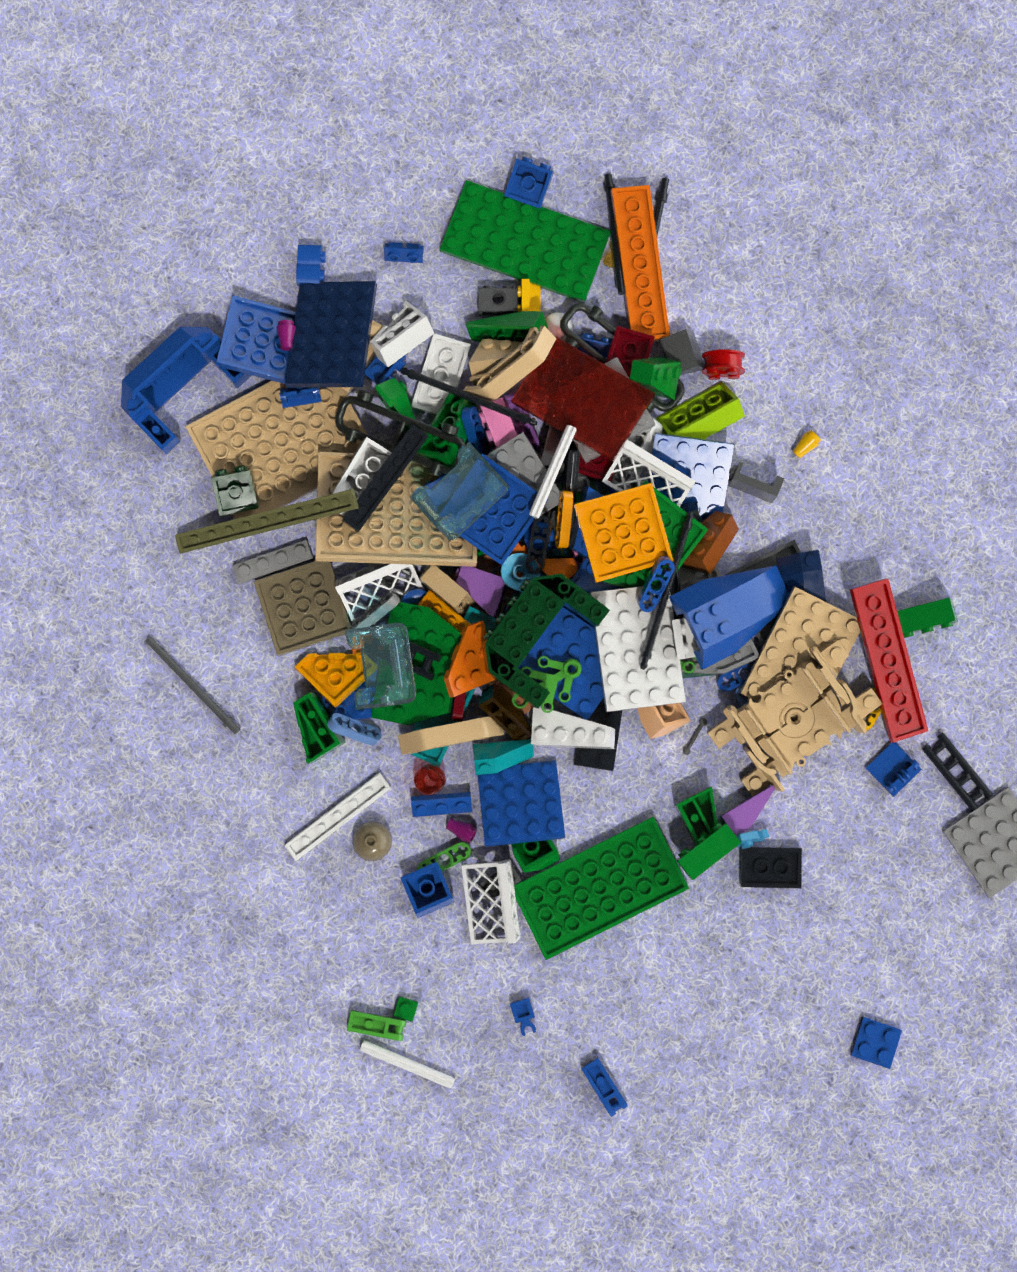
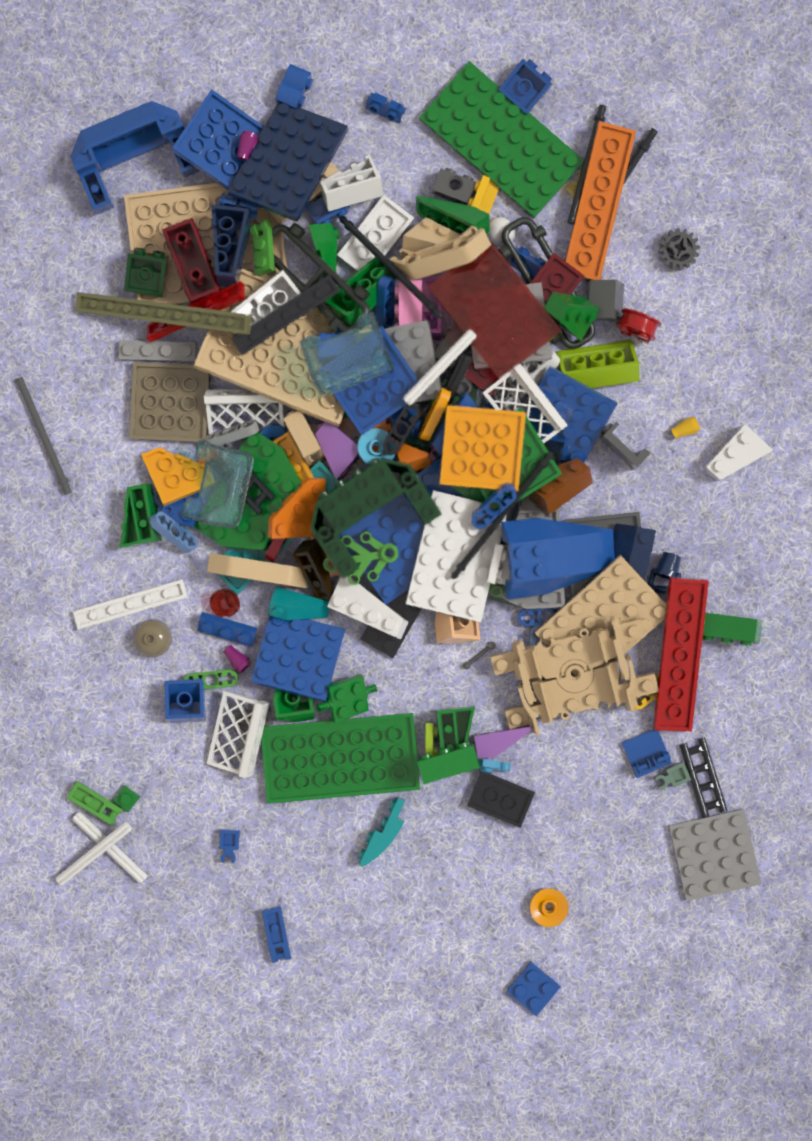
camera: 25 degrees right, 5 degrees up
(275, 463) = (191, 260): none -> dark red piece
(304, 427) = (230, 240): none -> dark blue wedge
(313, 490) = (215, 301): none -> red tile
(338, 425) = (263, 247): none -> bright green plate
(394, 1076) = (92, 854): none -> white axle
(584, 826) = (347, 698): none -> green plate
(670, 953) = (380, 840): none -> teal slope
(678, 830) = (430, 733): none -> lime plate
(724, 280) = (686, 250): none -> dark grey gear
(841, 582) = (667, 567): none -> dark blue piece
(864, 449) = (738, 452): none -> white wedge
(869, 960) = (550, 917): none -> light orange dish
(930, 779) = (676, 775): none -> sand green plate

